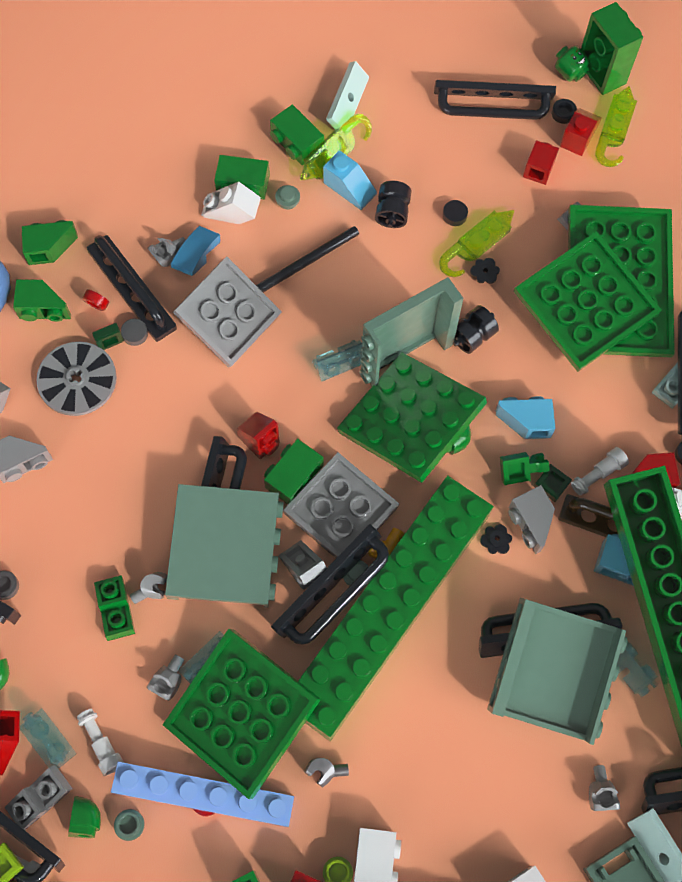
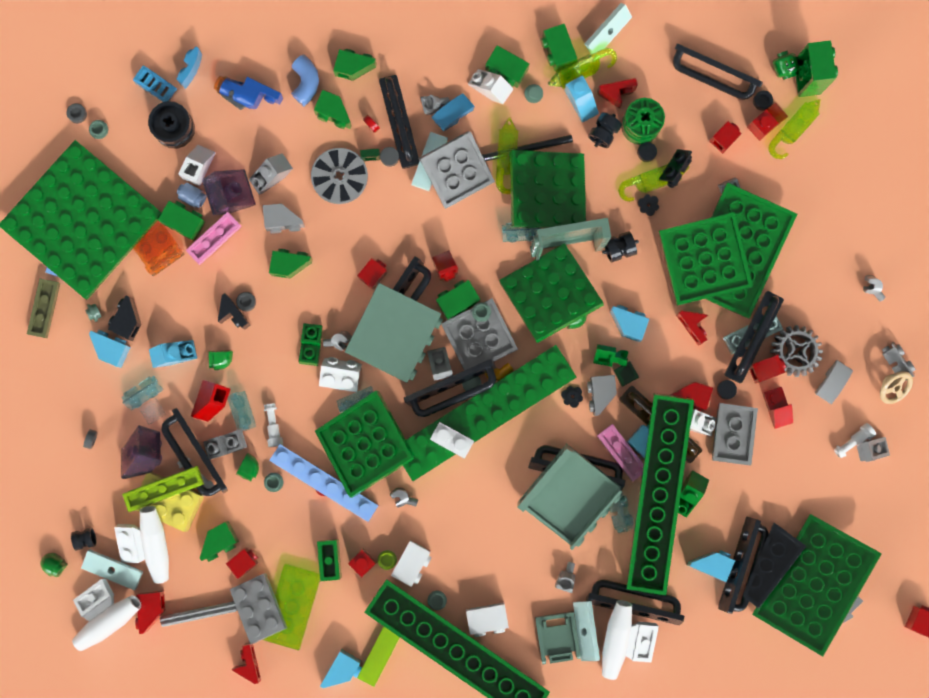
camera: 20 degrees right, 15 degrees up
(45, 513) = (287, 264): none -> green slope
(165, 480) = (373, 273): none -> red brick
(166, 679) = (327, 403): light grey piece -> none
(170, 632) = (340, 374): none -> white bracket
(185, 340) = (421, 178): none -> light aqua tile
(284, 275) = (506, 142): none -> clear neon green plate
(331, 473) = (481, 312): none -> sand green plate
(346, 291) = (547, 188): none -> green plate
(363, 653) = (452, 440): none -> white brick
(385, 159) = (612, 91): none -> red slope
(435, 176) = (643, 131): none -> green wheel
(499, 213) = (678, 163): none -> black hinge
(596, 585) = (621, 452): none -> bright pink plate
(603, 386) = (689, 321): none -> red slope
(615, 460) = (673, 375): white piece -> none

